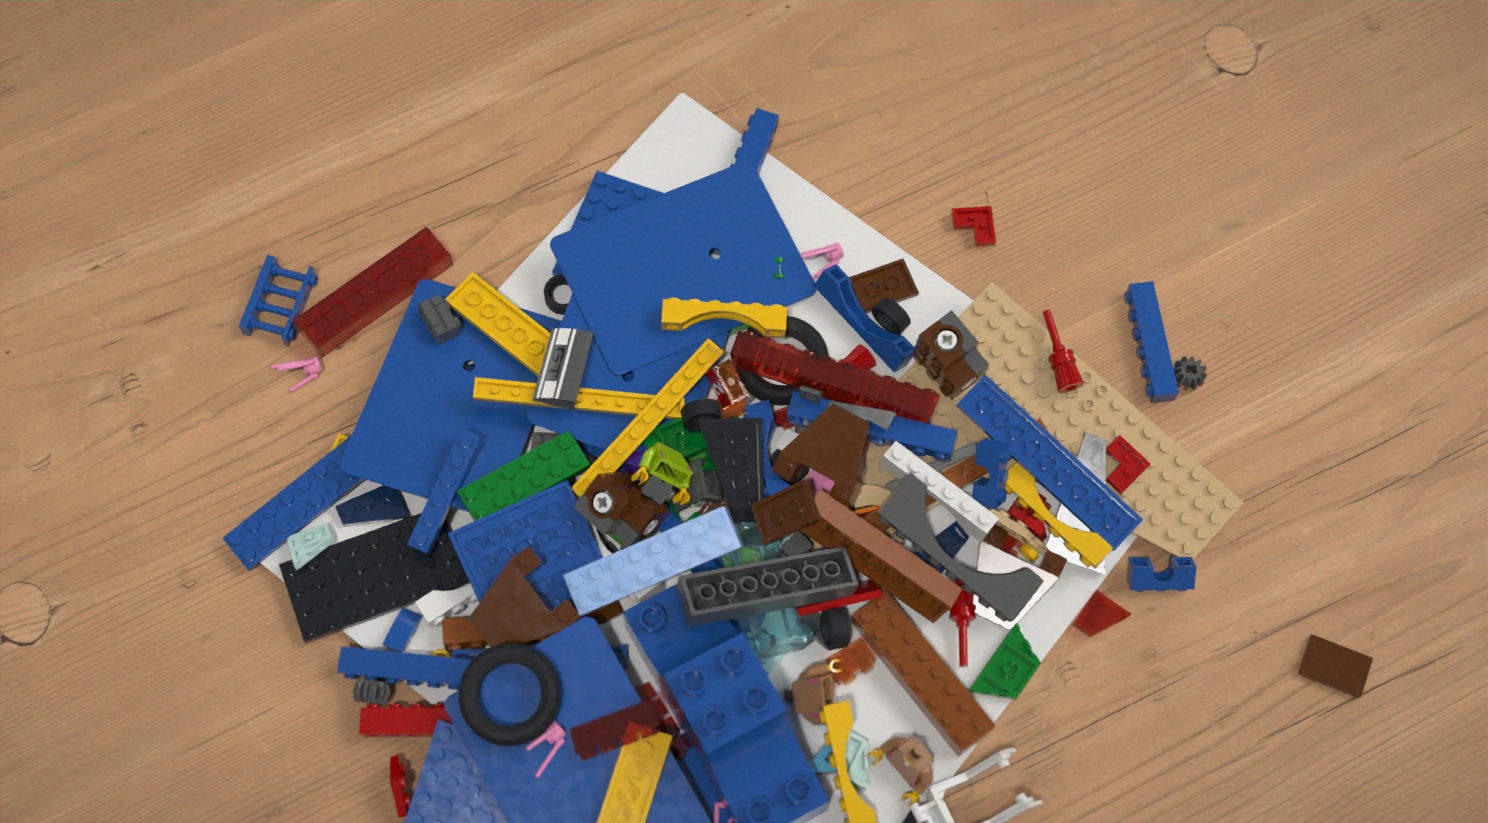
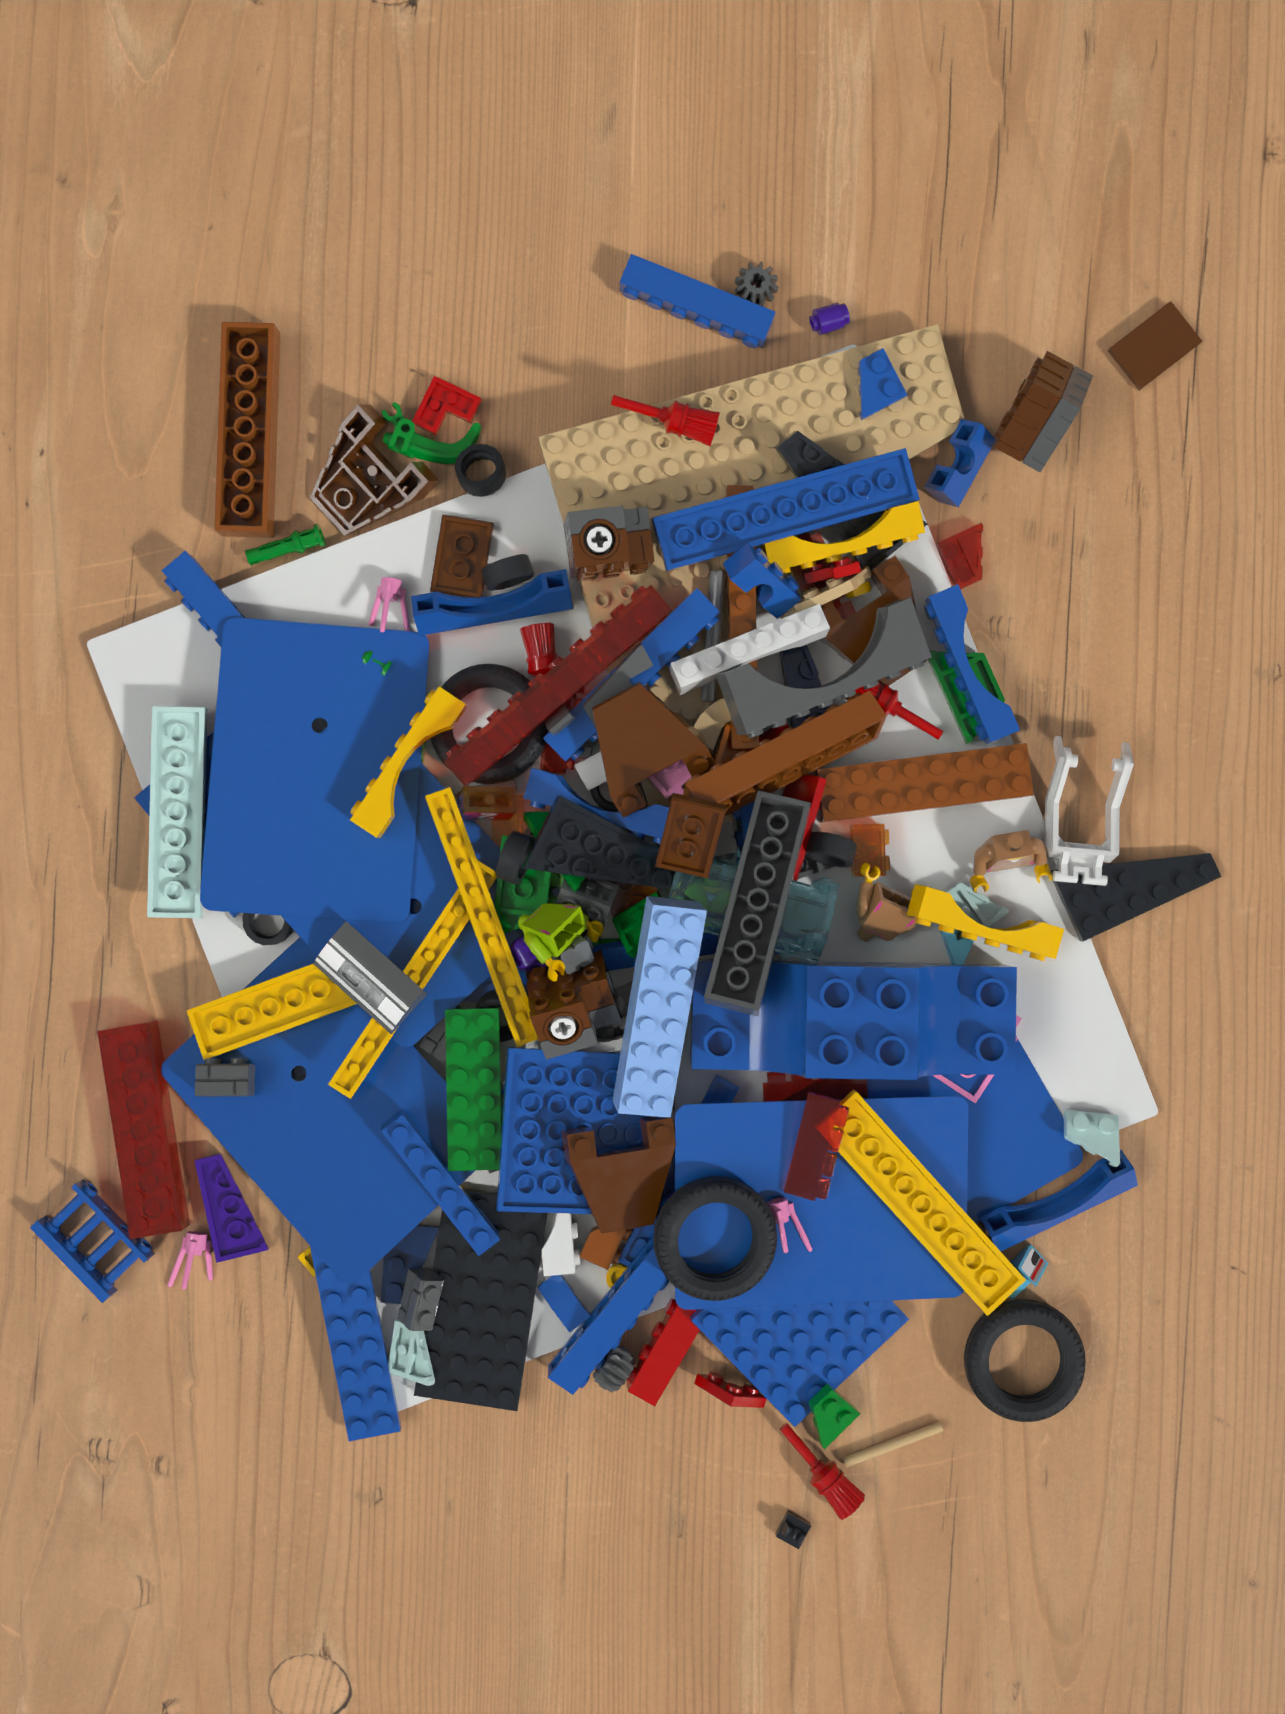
camera: 55 degrees left, 20 degrees up
(342, 377) = (228, 1215): none -> dark purple wing
(352, 528) = (420, 1299): none -> dark grey brick
(604, 196) = (177, 811): none -> light aqua plate
(827, 181) = (296, 542): none -> green pin
(880, 113) = (247, 429): none -> dark orange brick
(893, 200) = (360, 482): none -> reddish brown wedge
(937, 213) = (413, 445): none -> green piece
(953, 256) = (475, 453): none -> black tyre
(1000, 690) = (949, 614): none -> blue arch
(1130, 464) = (834, 420): red plate -> none
(1174, 483) = (878, 384): none -> blue wing
(1200, 433) = (829, 318): none -> dark purple brick
(1233, 604) = (1042, 410): none -> reddish brown piece

